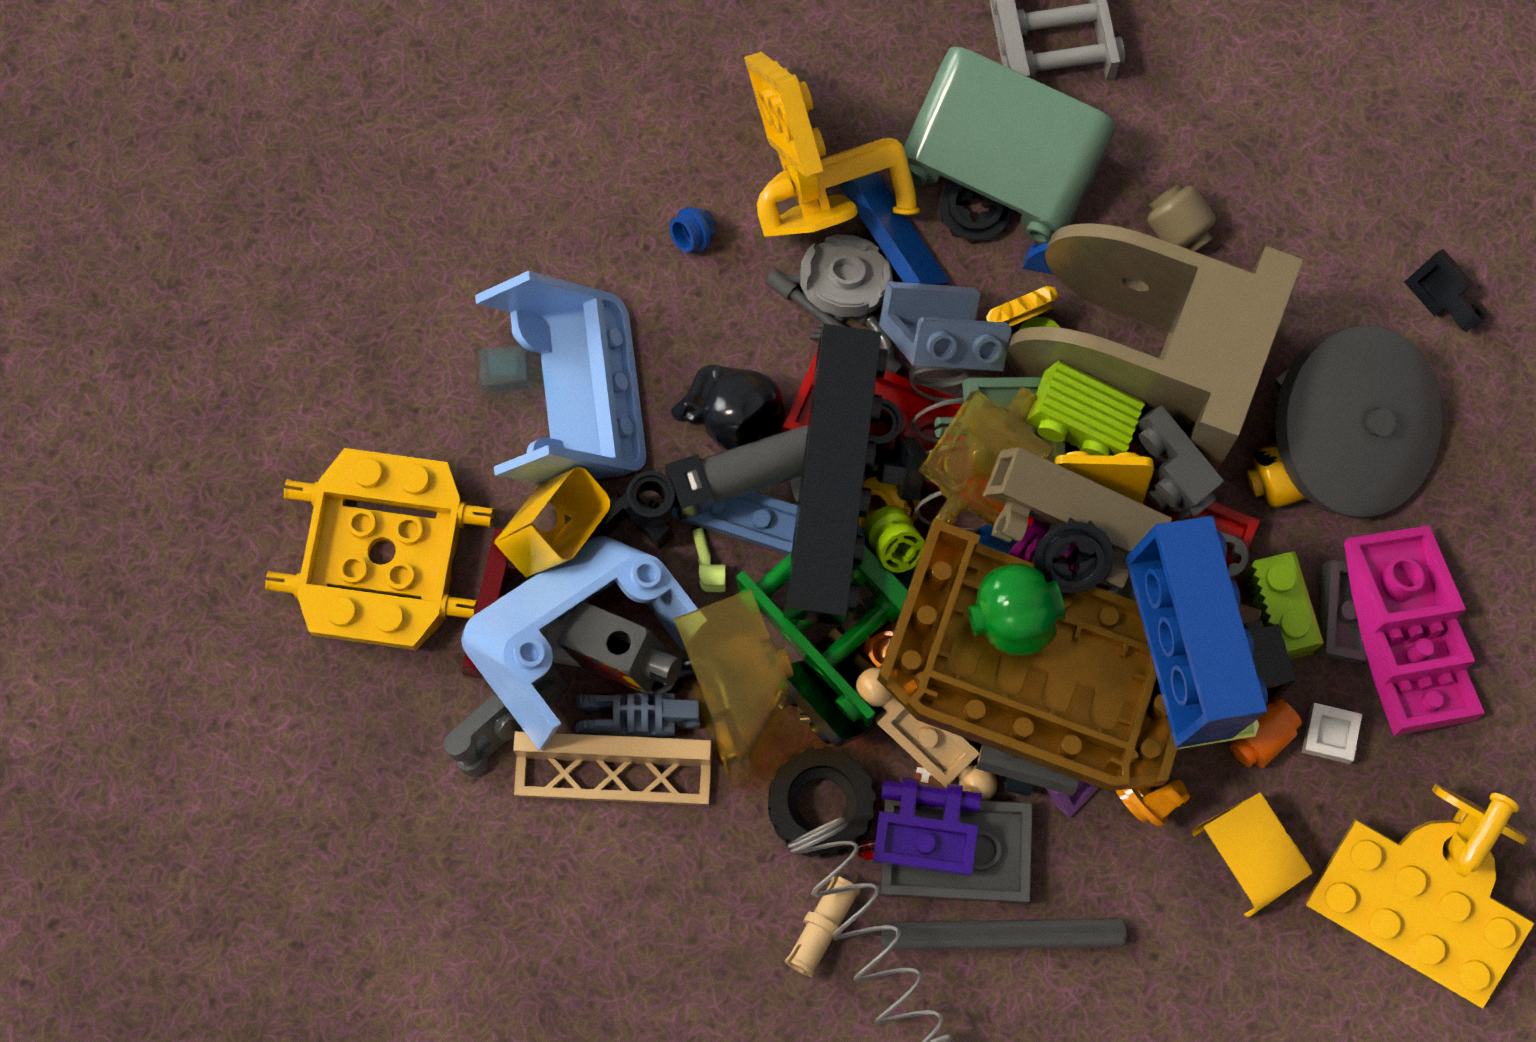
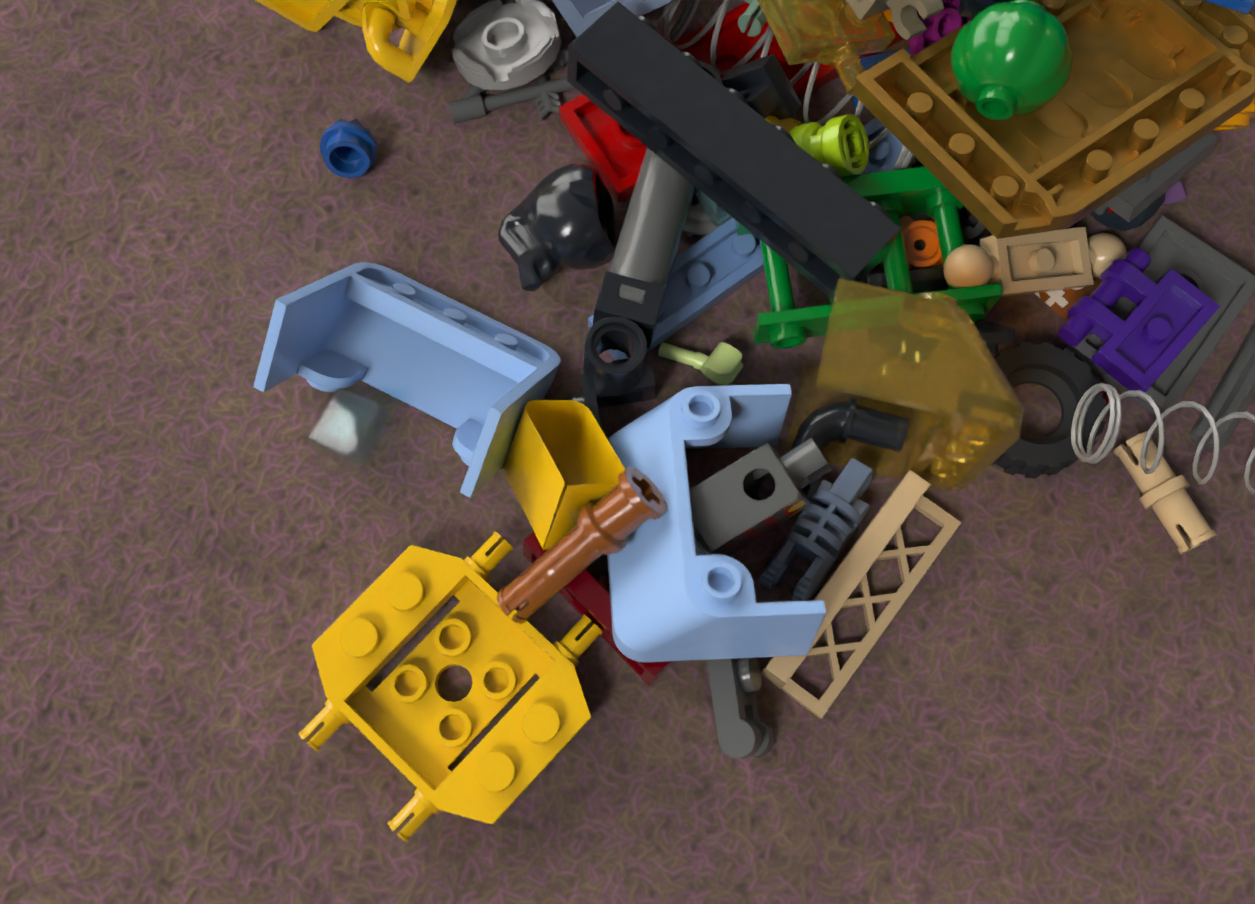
camera: 55 degrees left, 0 degrees up
(522, 565) = (599, 531): none -> dark orange pin

